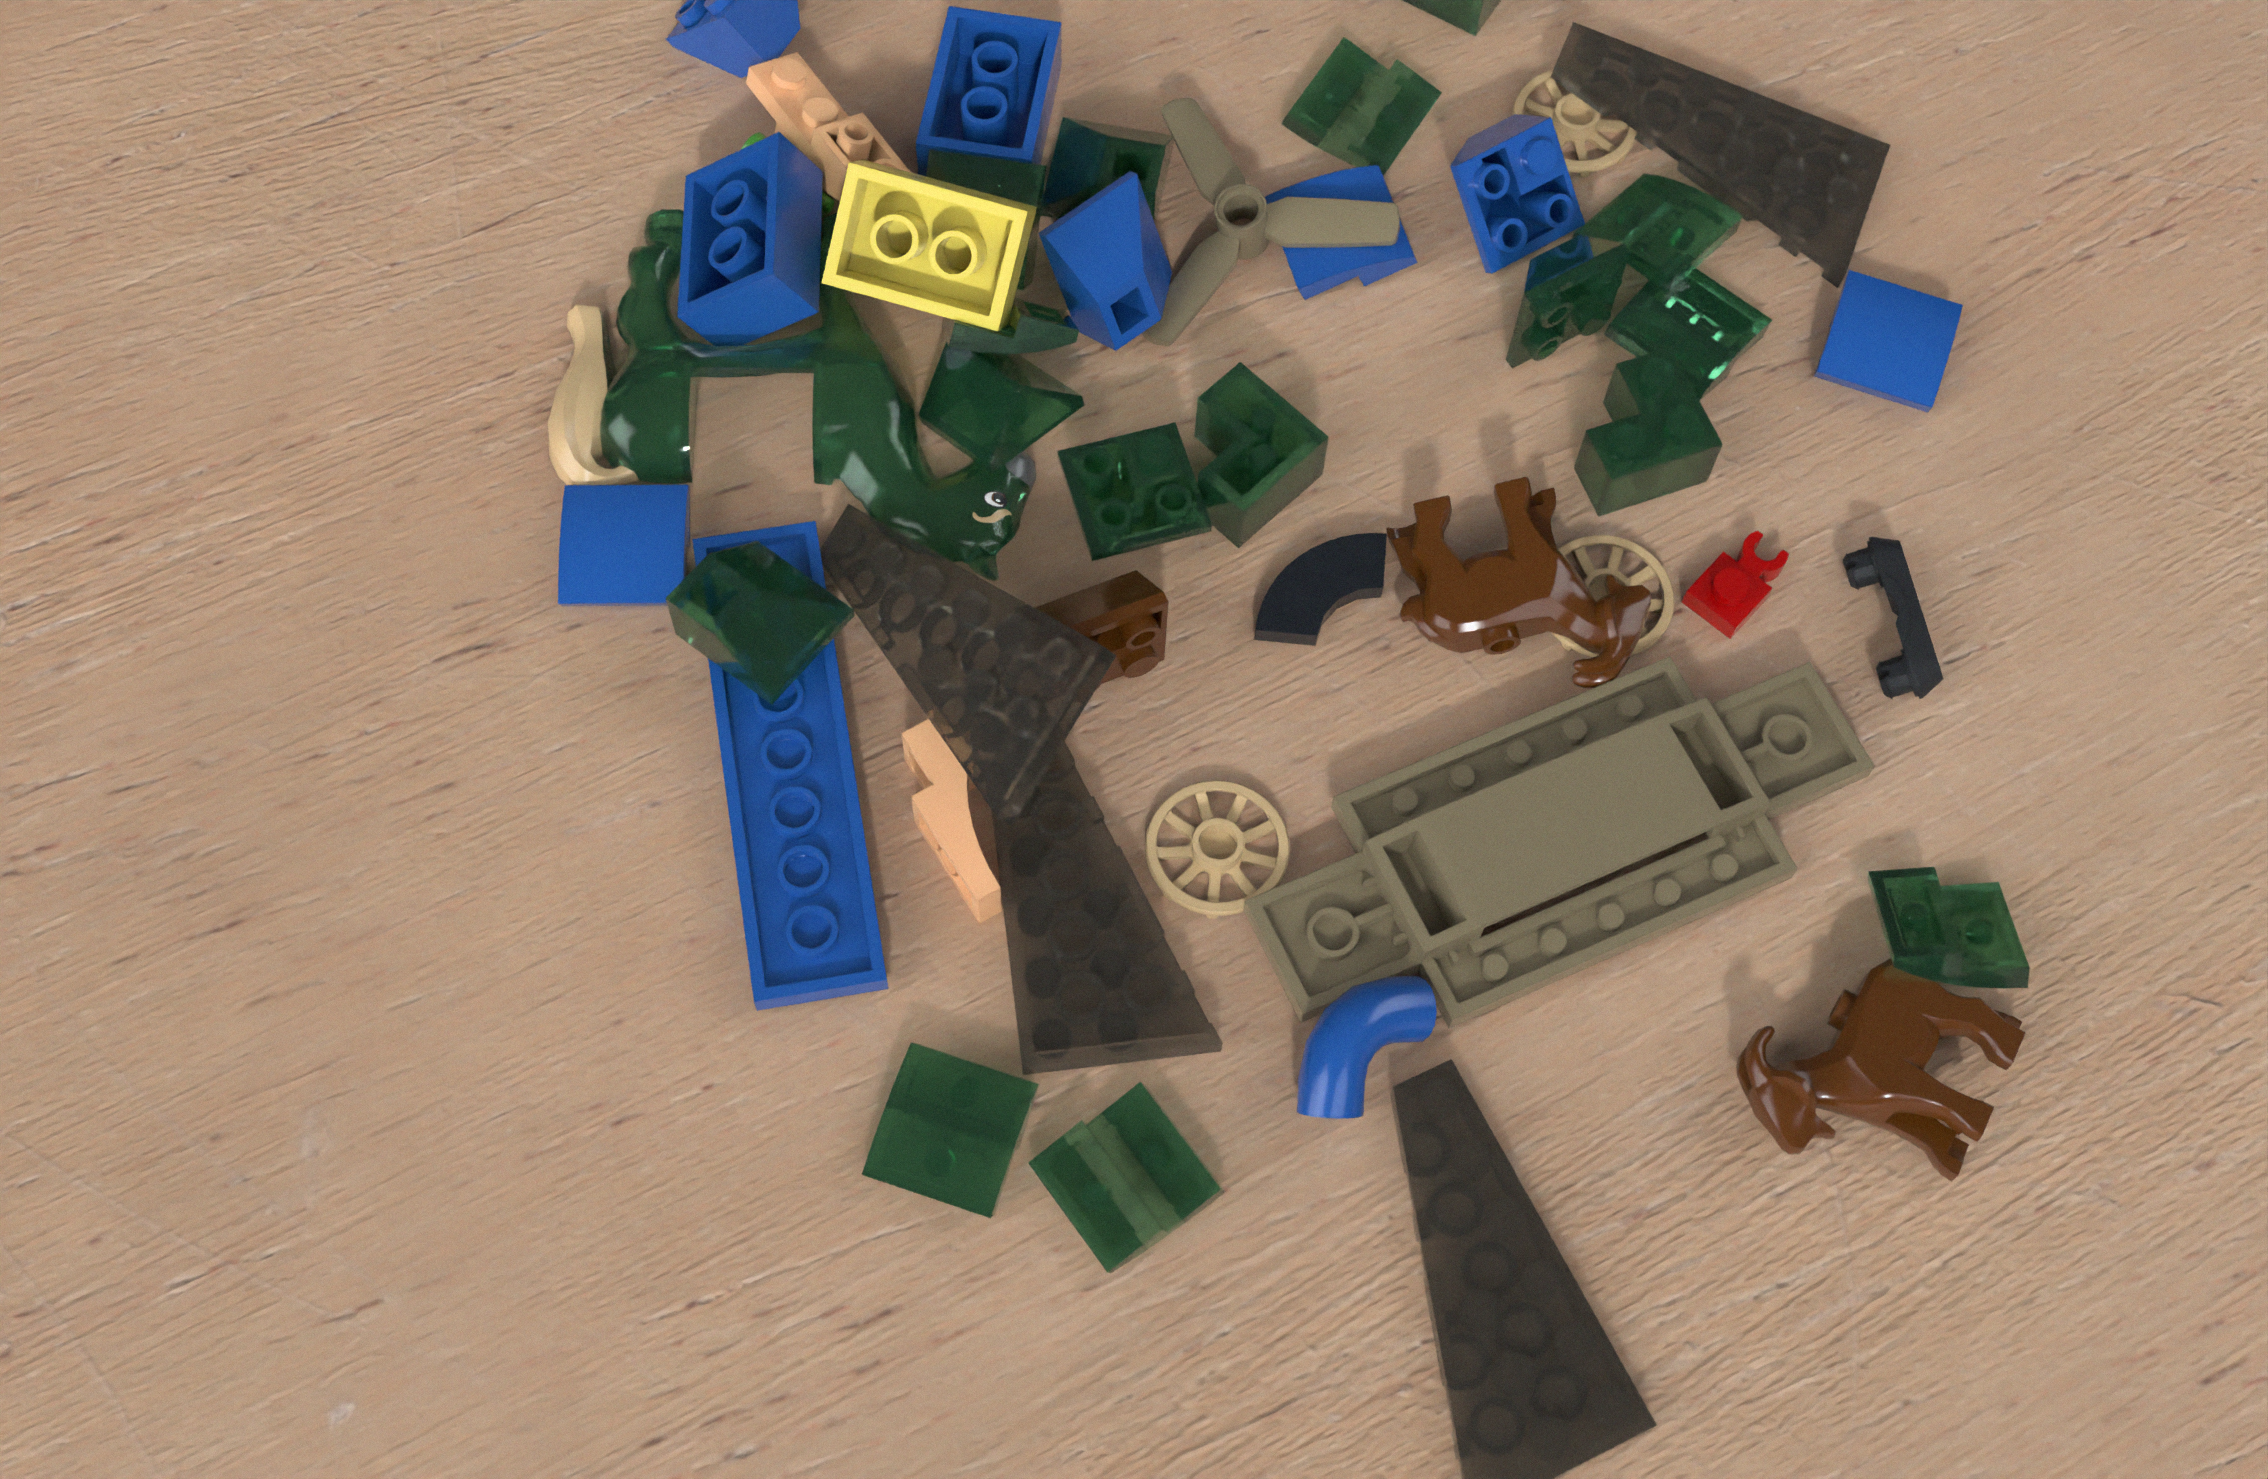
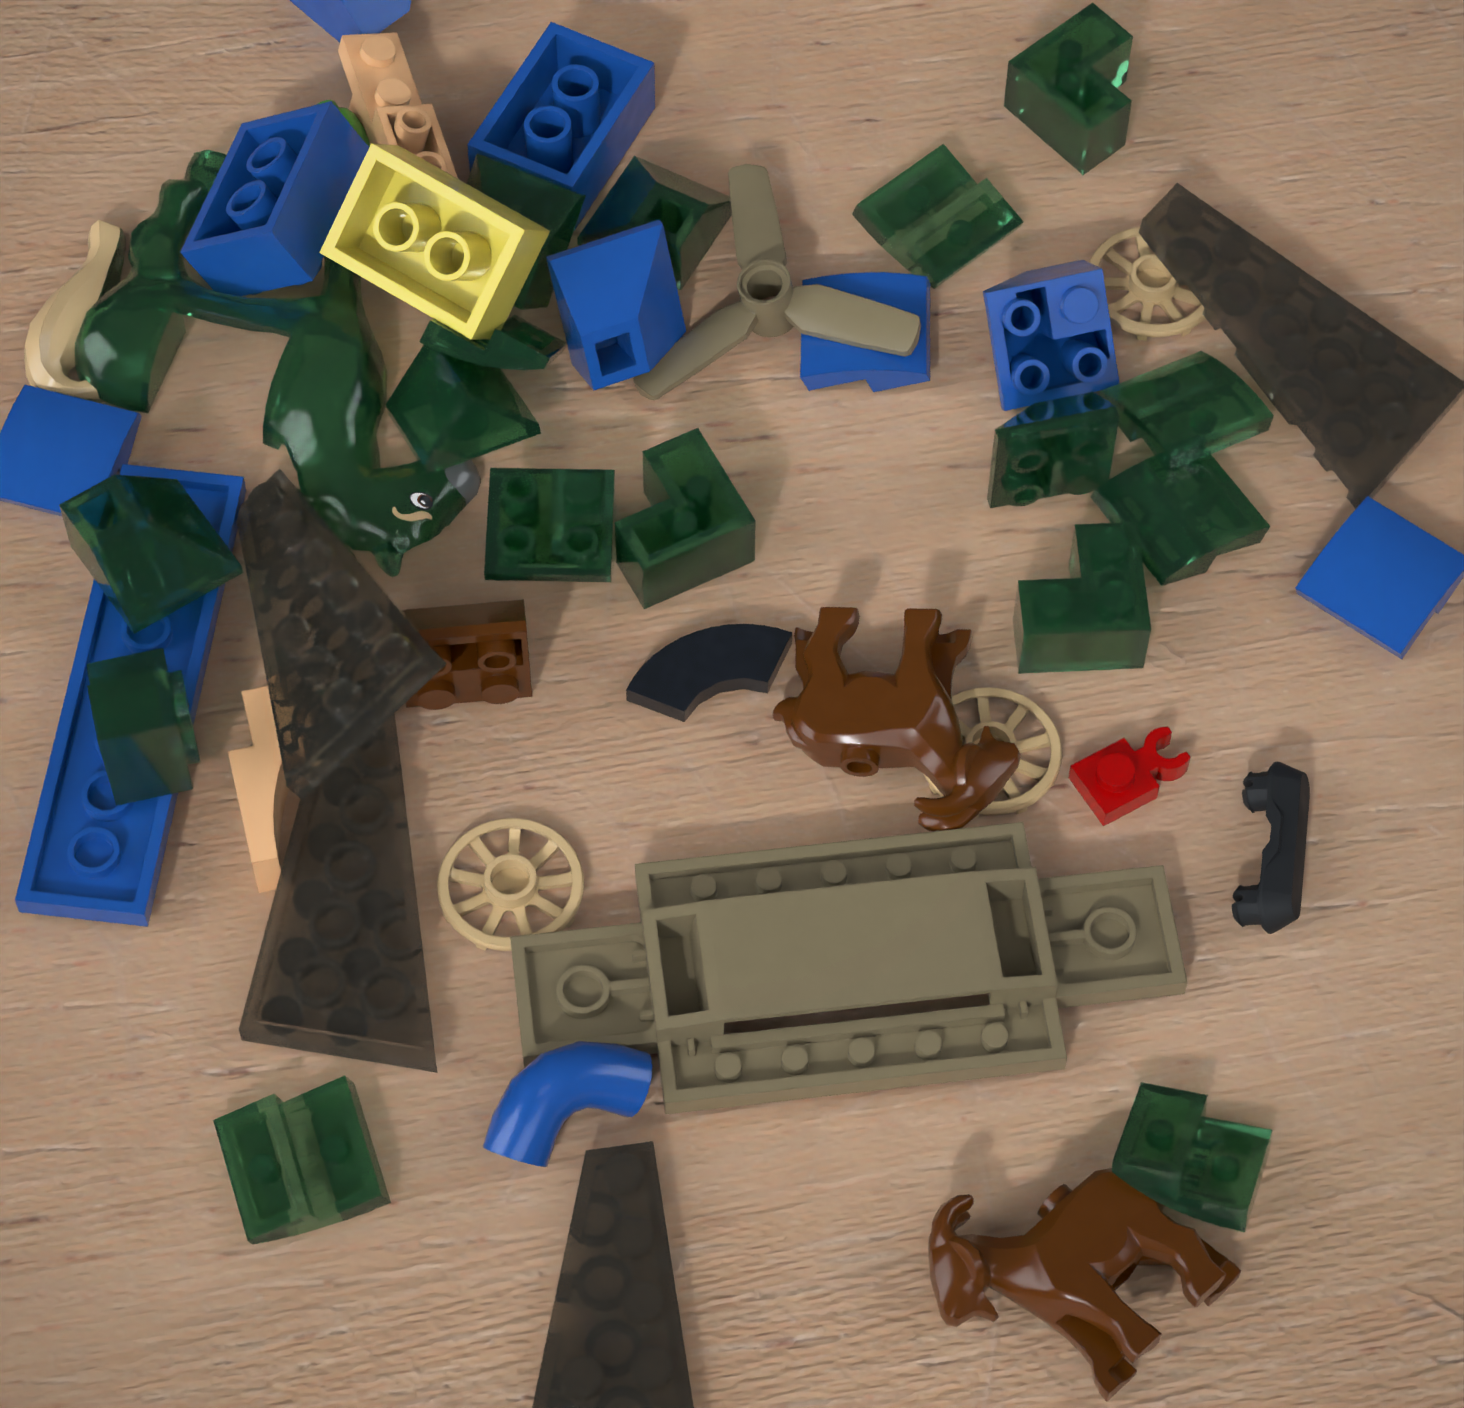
camera: 20 degrees right, 5 degrees down
(822, 793) = (142, 725): none -> clear green brick
(950, 1129) = (153, 1069): clear green slope -> none

